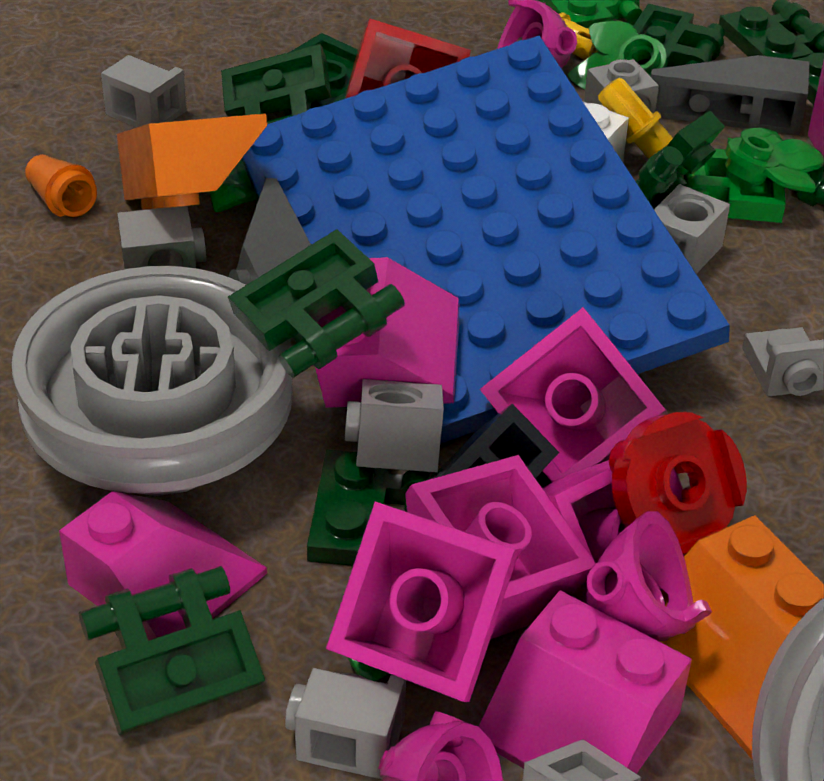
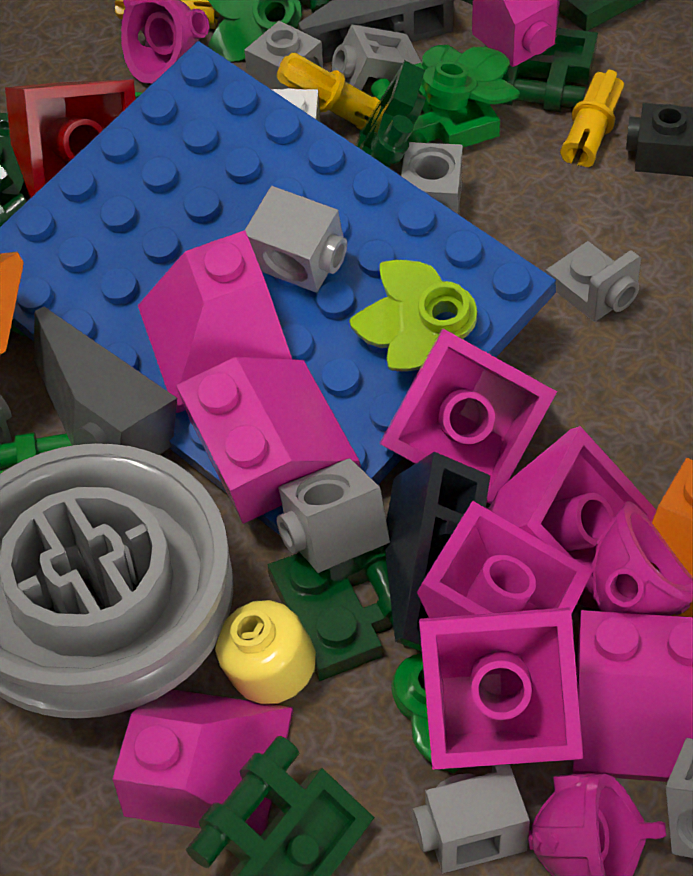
camera: 25 degrees left, 10 degrees up
(266, 506) = (266, 652): none -> light yellow head
(305, 290) = (195, 431): dark green plate -> none
(415, 220) = (210, 311): none -> dark pink slope
(508, 198) = (296, 238): none -> light grey brick
(587, 282) = (407, 315): none -> lime plate
(683, 443) = (585, 462): red plate -> none
(700, 103) = (372, 54): none -> light grey bracket

